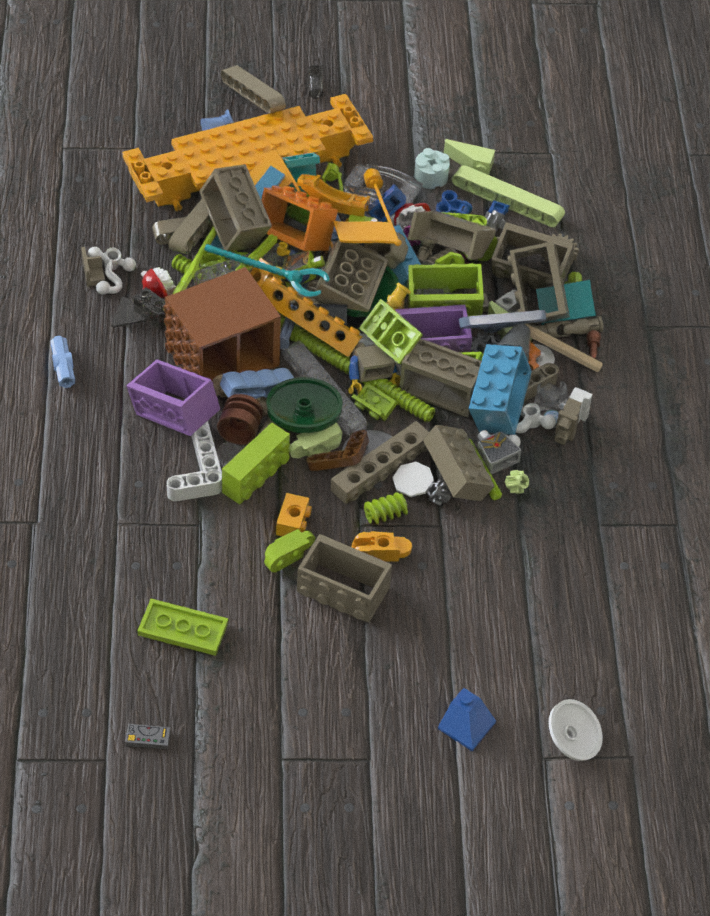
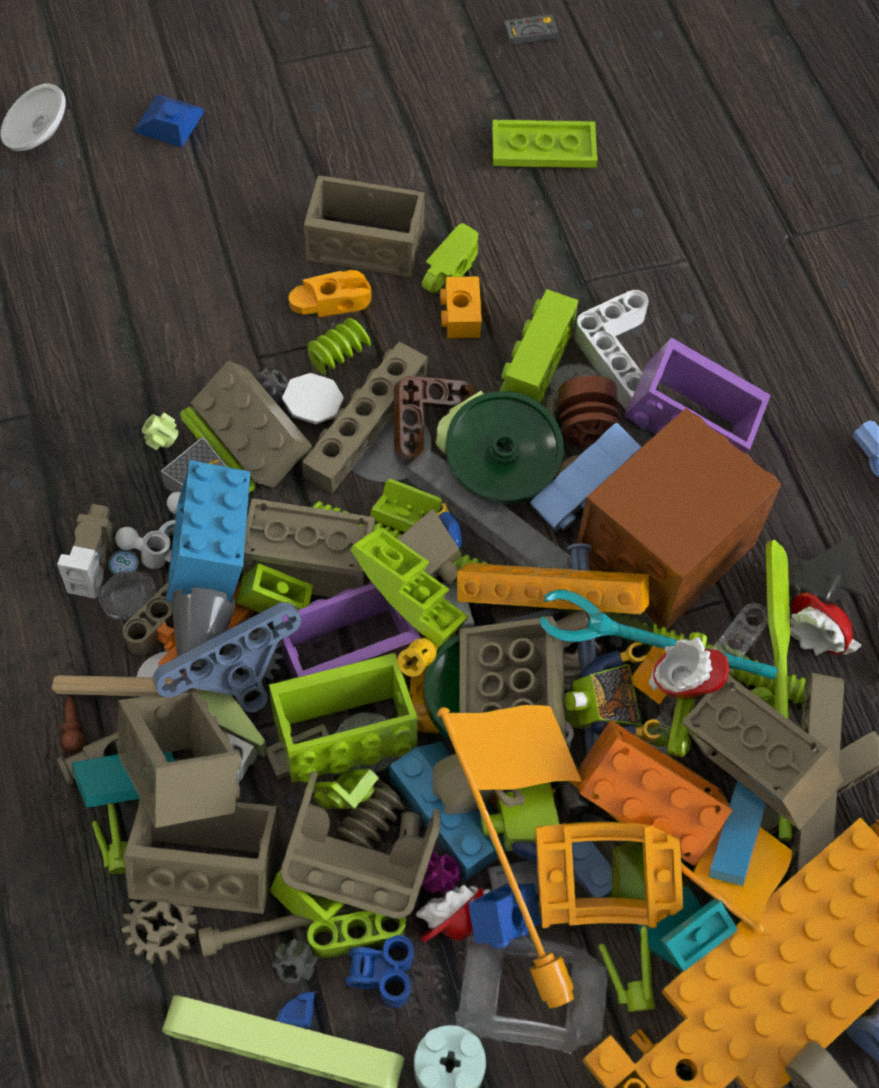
camera: 165 degrees right, 10 degrees up
(257, 243) = (689, 670): none -> white hair

